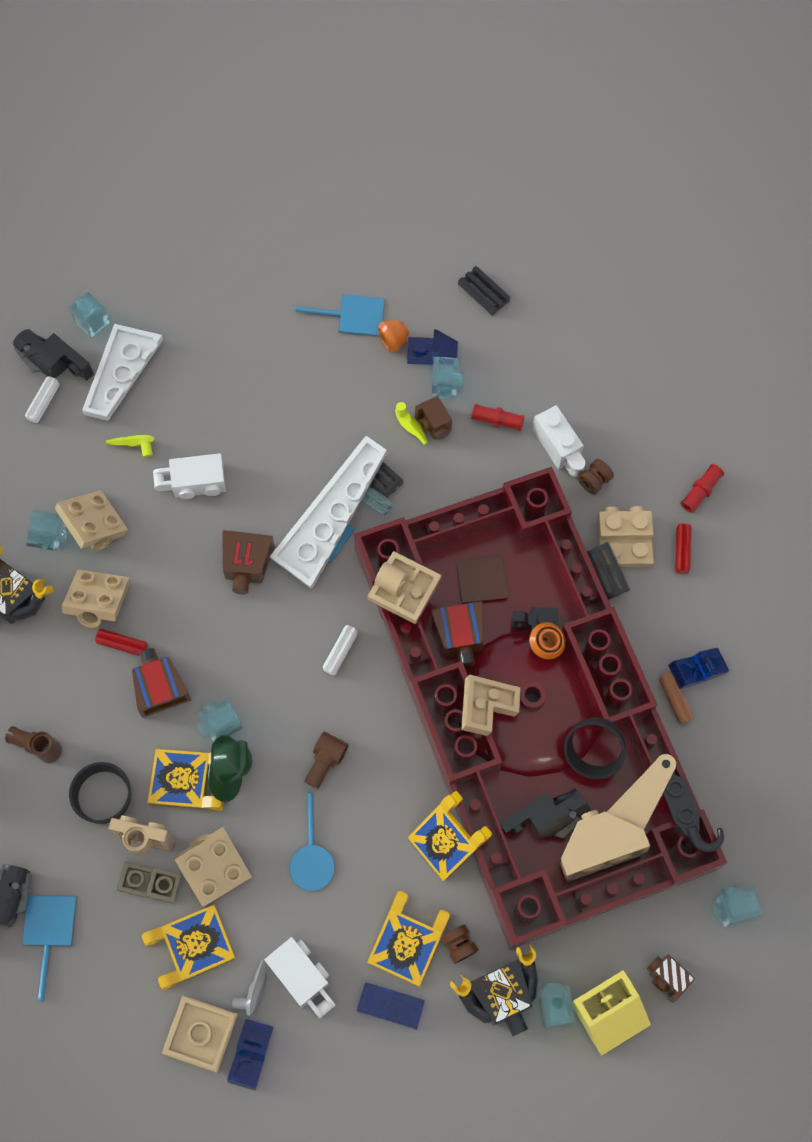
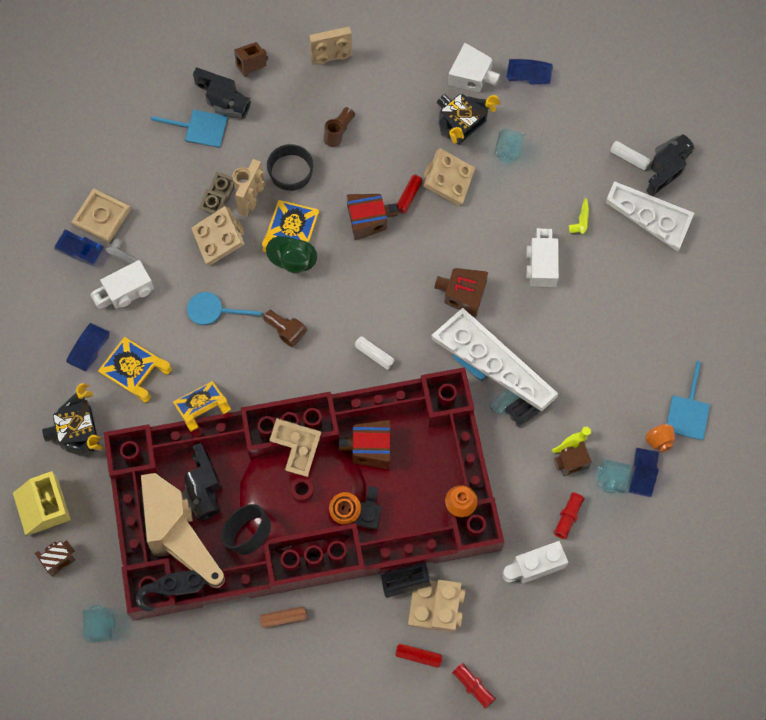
camera: 100 degrees right, 0 degrees up
(89, 314) = (705, 194): clear light blue brick -> none
(91, 520) = (514, 179): tan plate -> none
(194, 944) = (167, 220): flag -> none
(218, 720) = (331, 254): clear light blue brick -> none
(404, 587) = (408, 395): tan plate -> none
(457, 937) = (125, 402): reddish brown wheel -> none
(482, 579) = (417, 474): reddish brown sticker -> none
(483, 287) = (717, 518): black tile -> none
(517, 514) = (457, 505): none -> orange cone
(556, 1005) = (59, 462): clear light blue brick -> none
(595, 476) = (497, 584): reddish brown wheel -> none
(698, 668) = (305, 642): clear blue slope -> none

